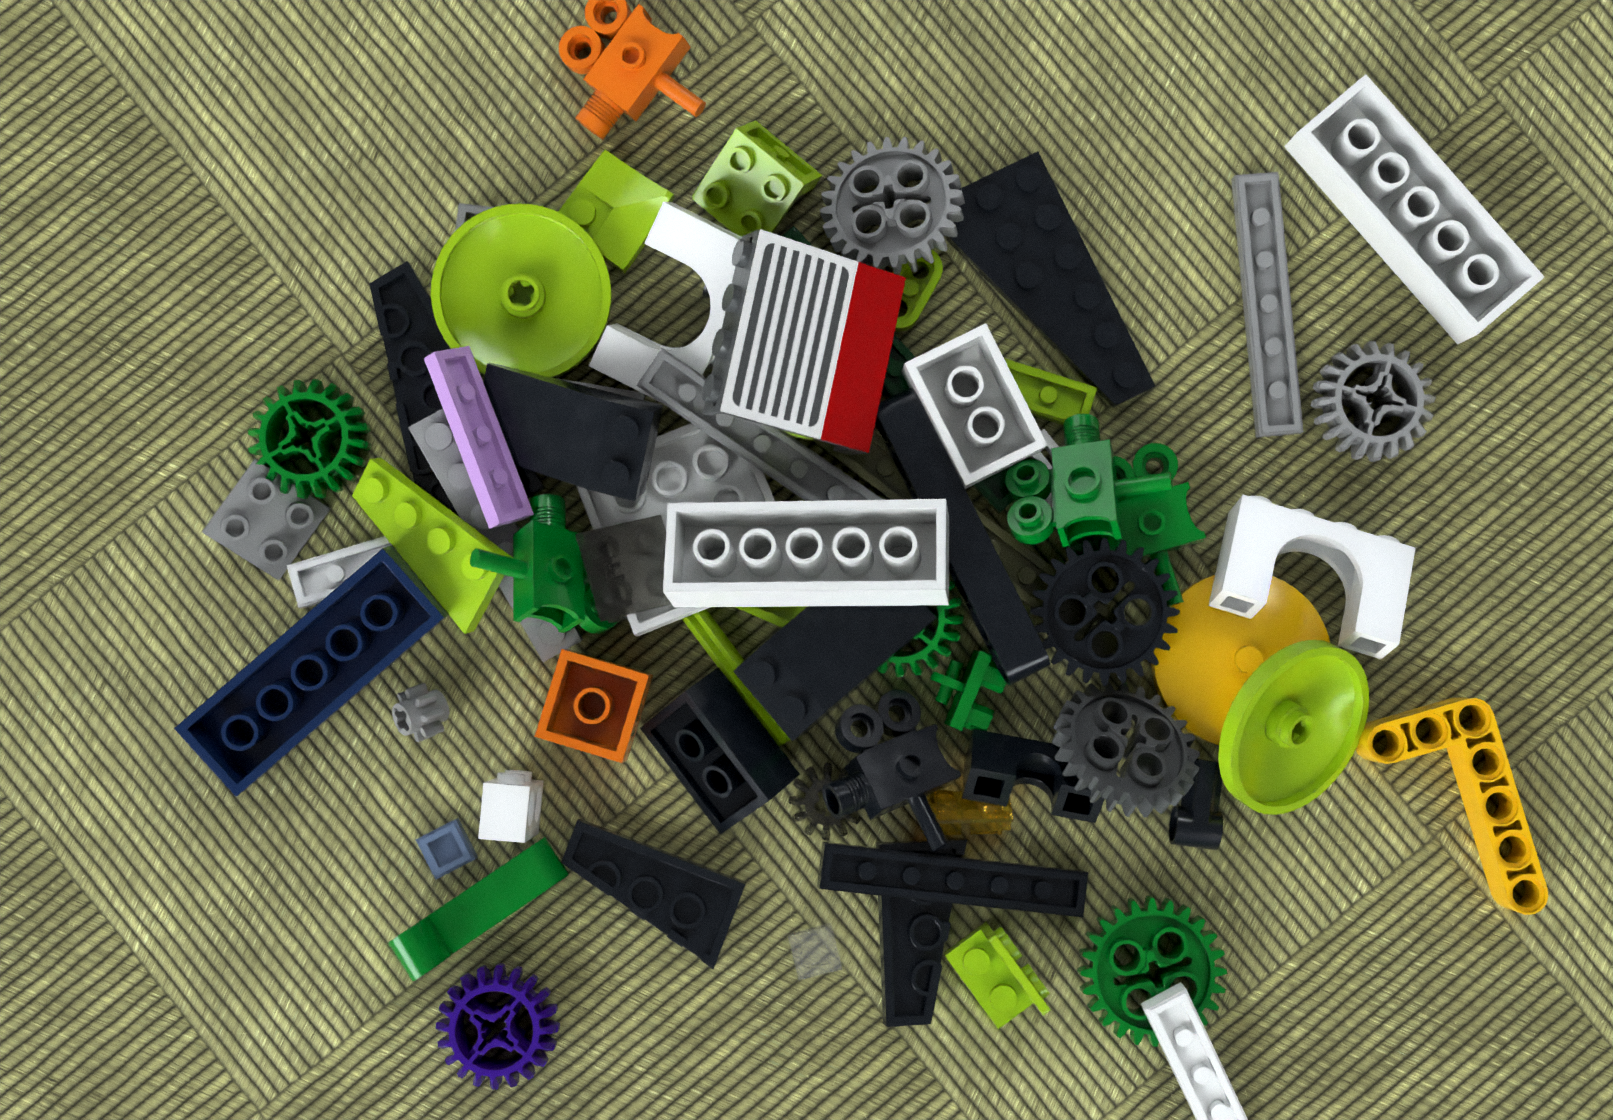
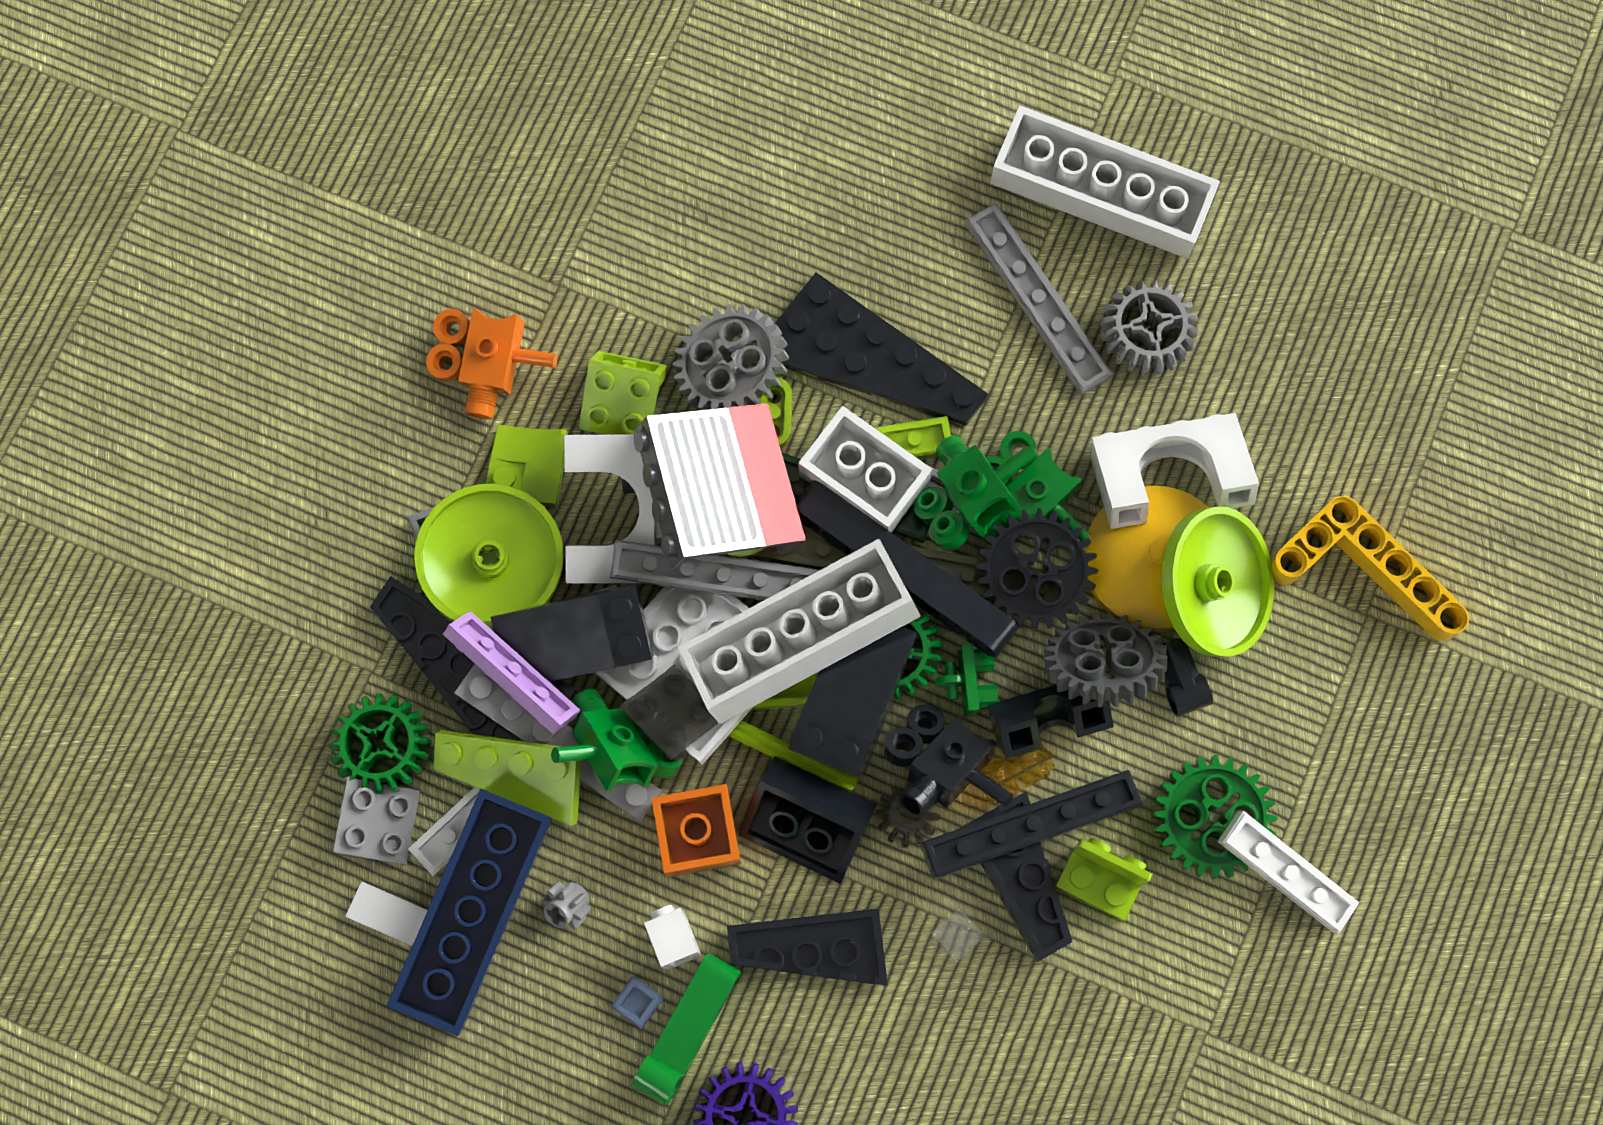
camera: 25 degrees left, 10 degrees down
(232, 621) = (386, 913): none -> white tile

